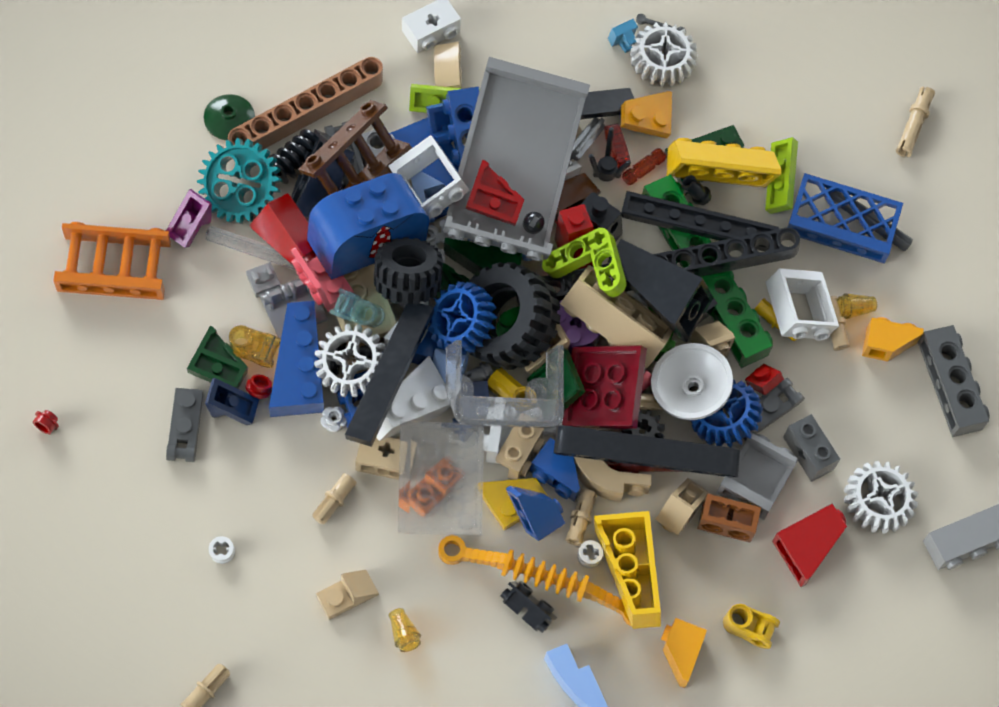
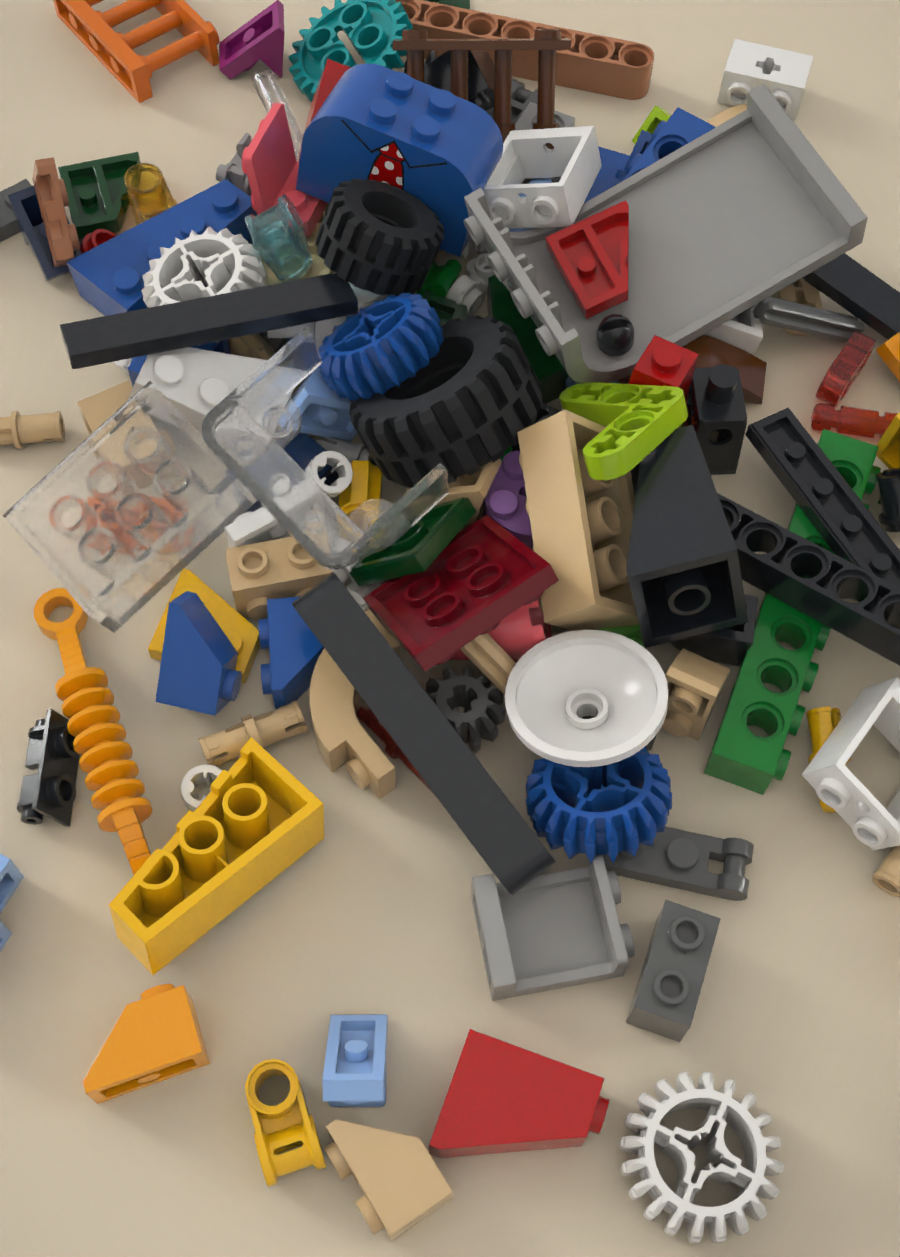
camera: 55 degrees right, 5 degrees down
(241, 390) = (52, 199): none -> nougat wing
(498, 384) = (339, 464): none -> white bush
(607, 166) = (806, 377): black plant -> none
(682, 506) = (394, 855): tan slope -> none
(729, 518) = (431, 936): dark orange brick -> none
(751, 582) = (356, 1061): none -> light blue slope
(764, 379) = (715, 812): red plate -> none
(801, 603) = (392, 1171): none -> tan slope

